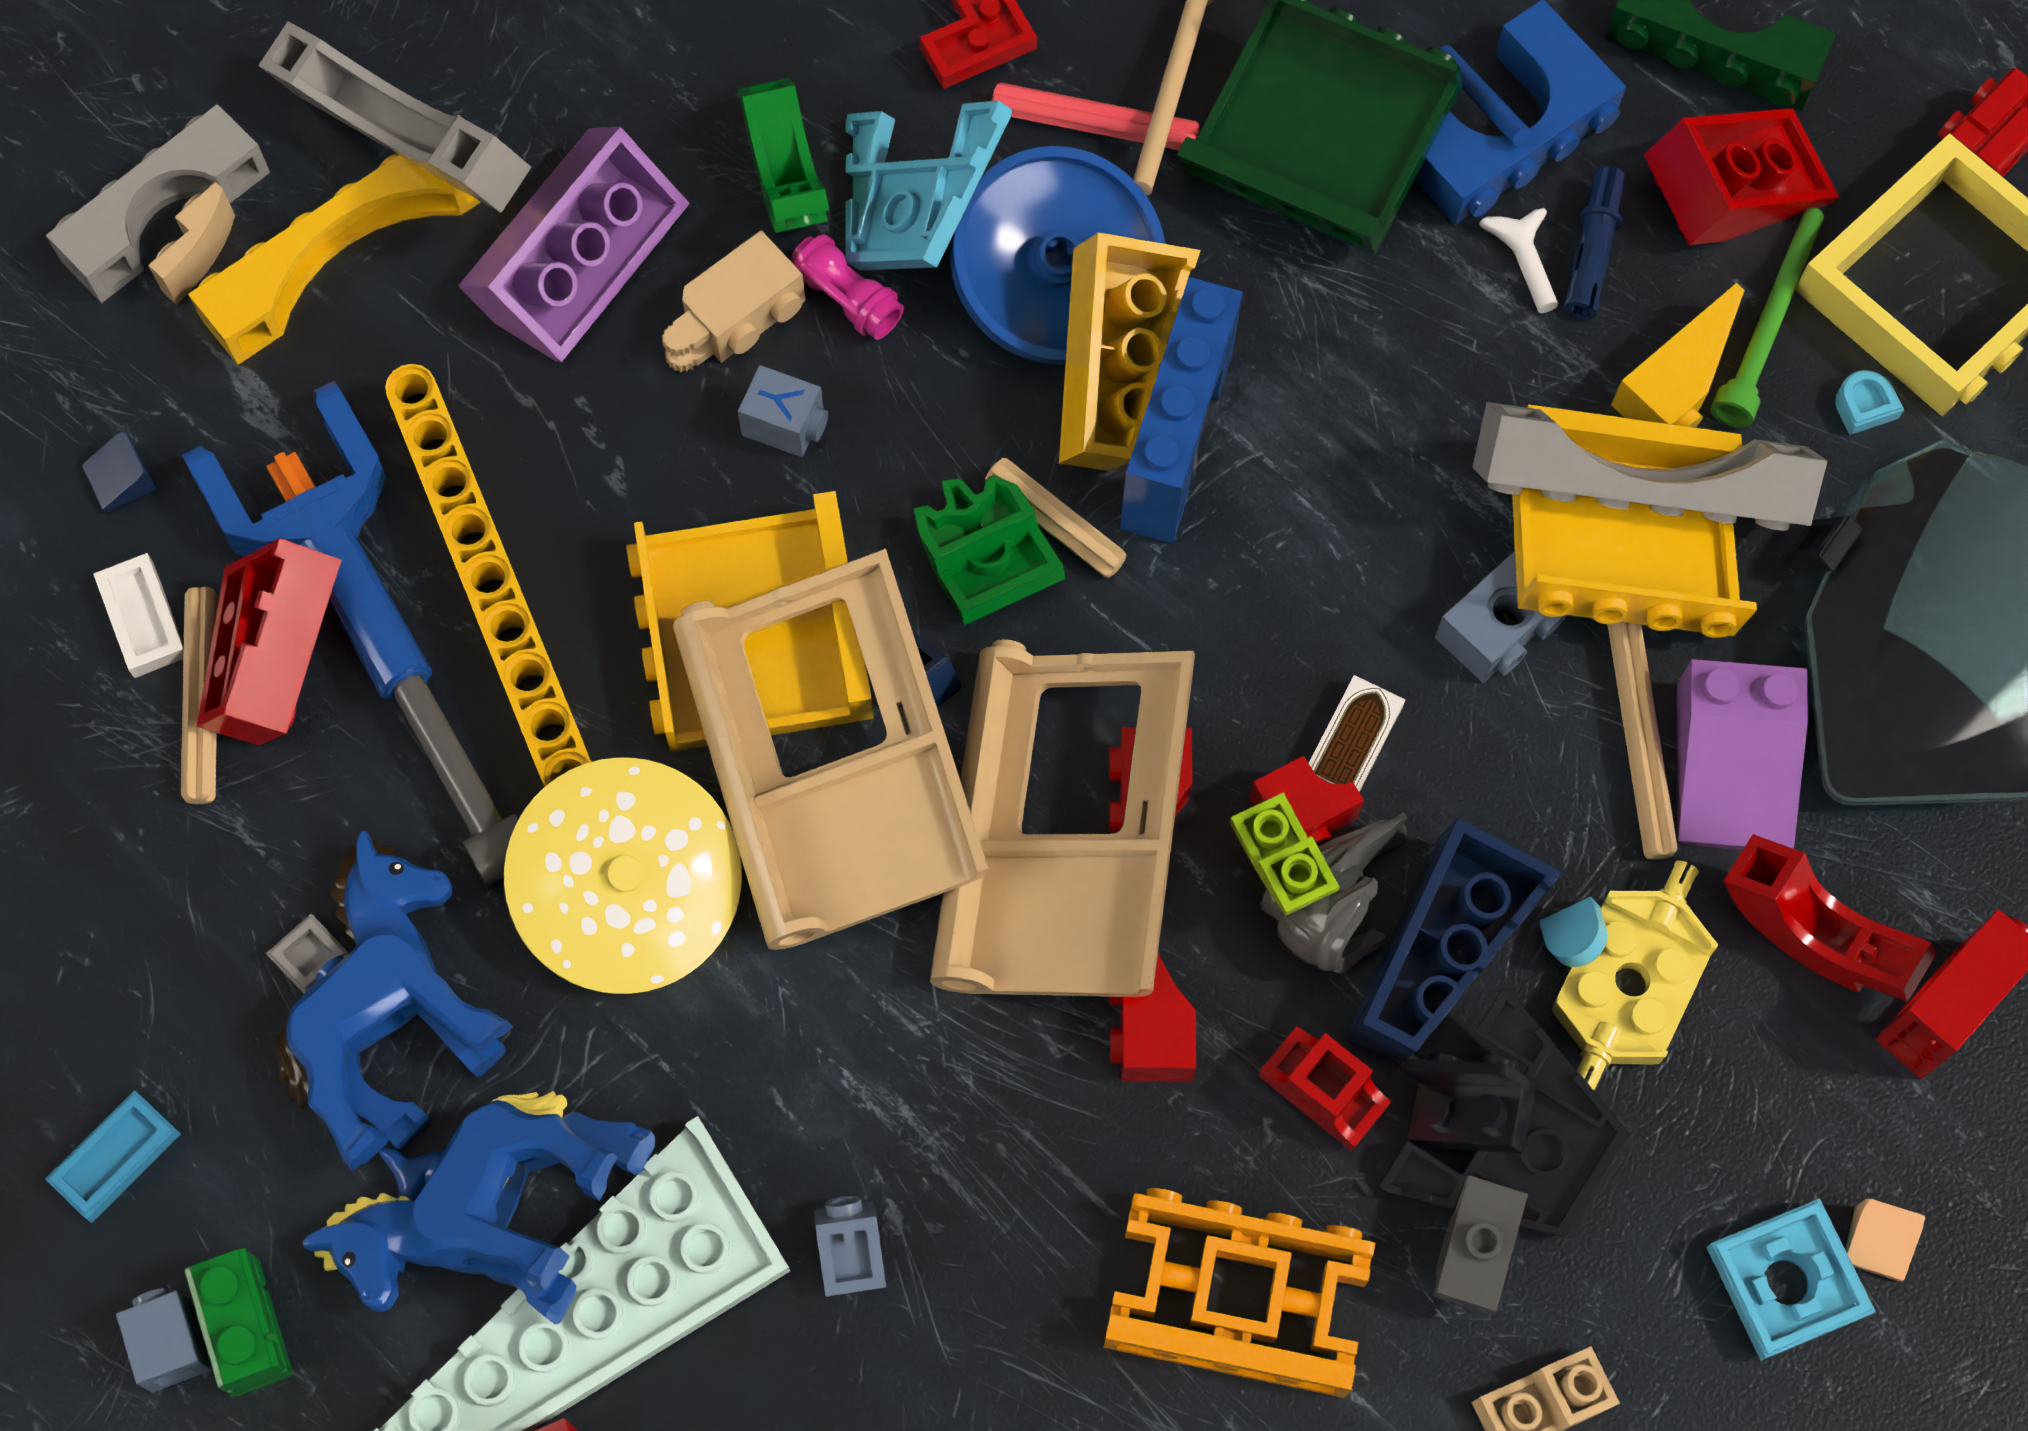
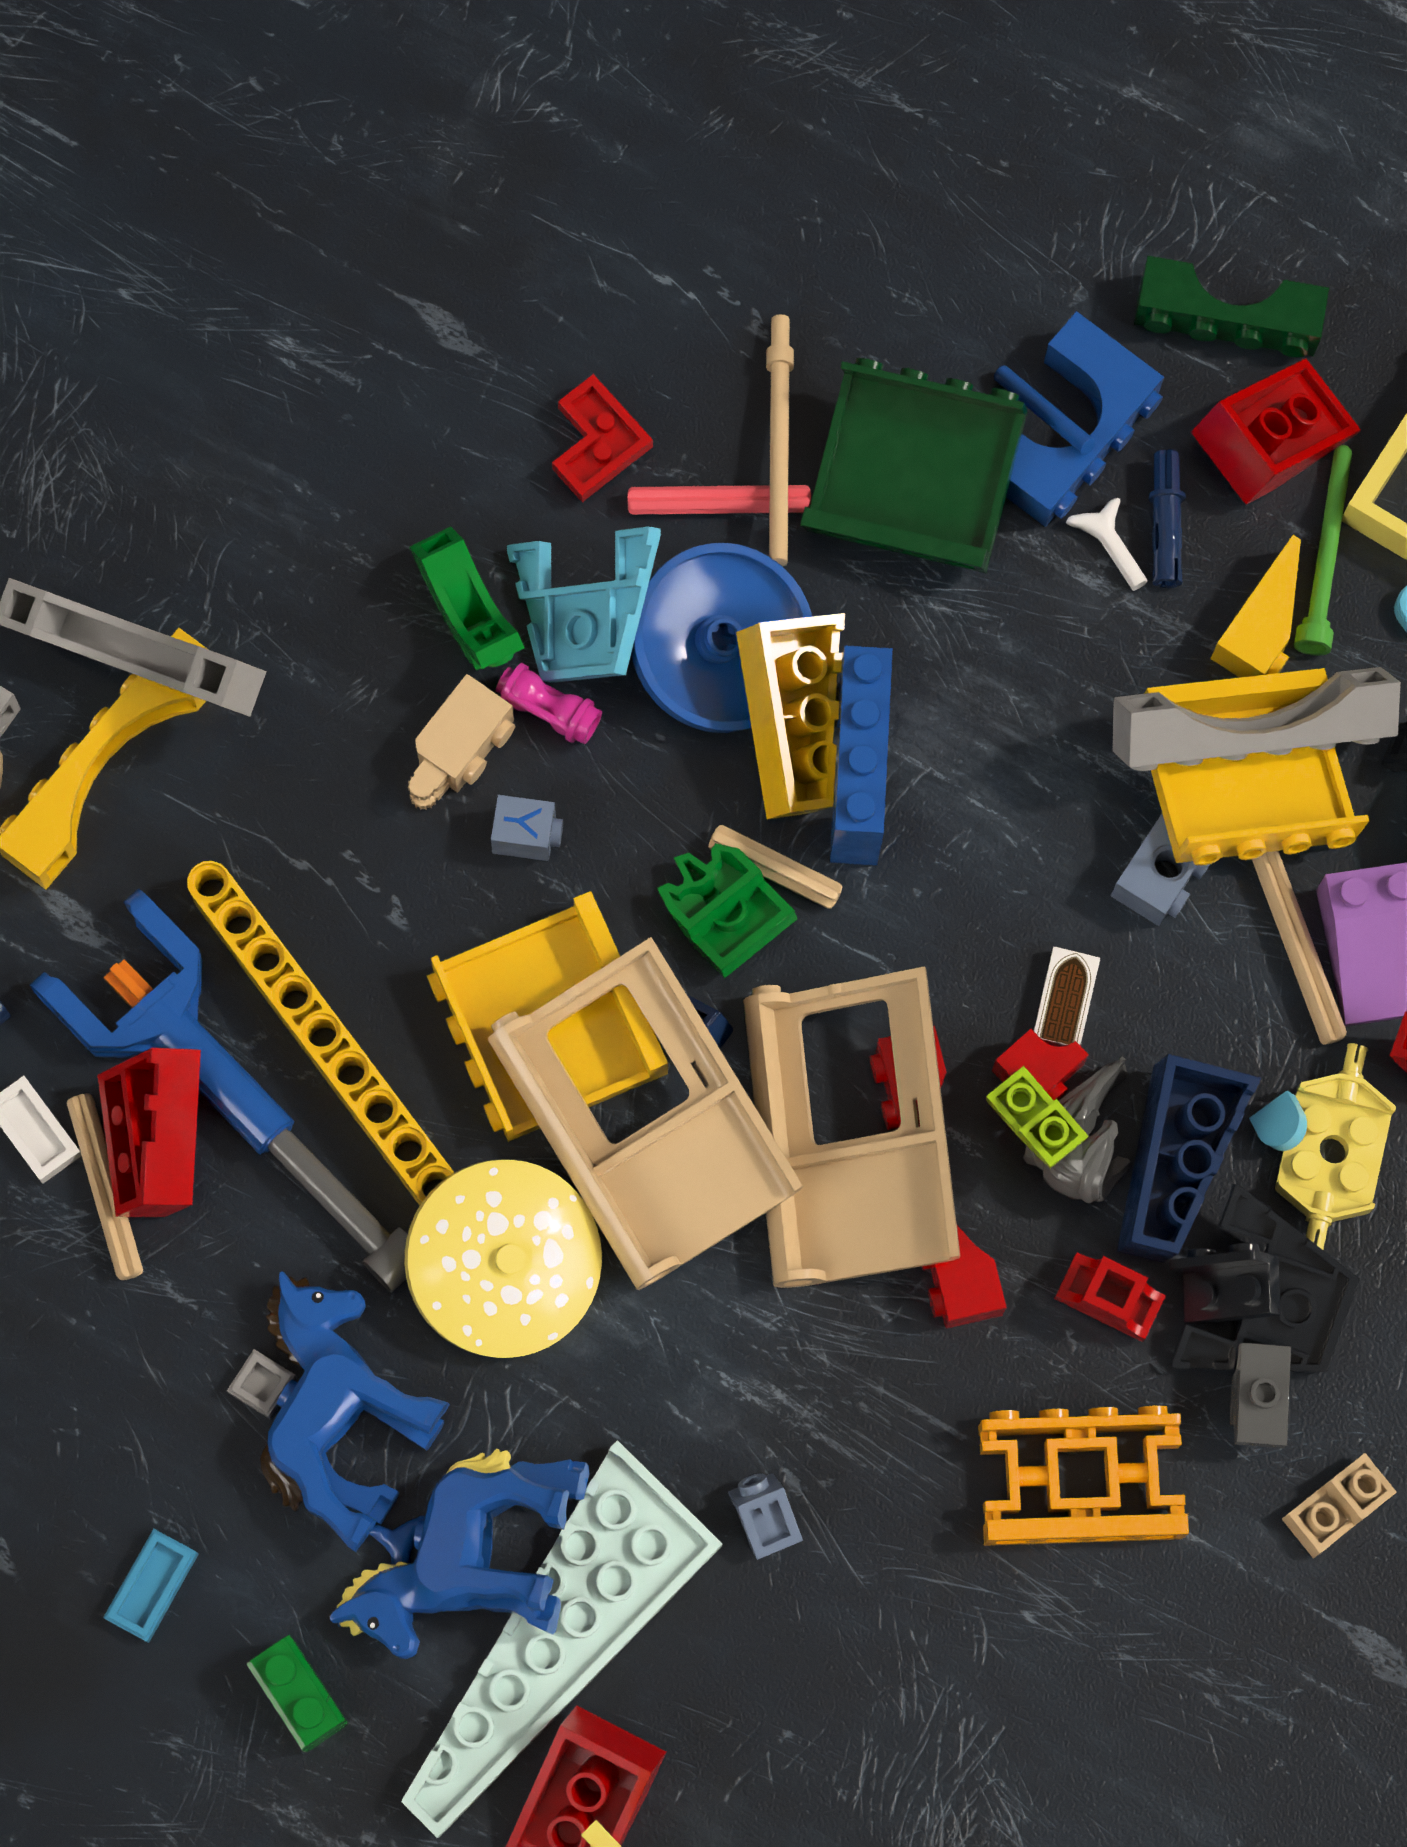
camera: 15 degrees left, 5 degrees up
(163, 1339) = (239, 1721): sand blue brick -> none
(575, 242) = (307, 716): medium lavender slope -> none

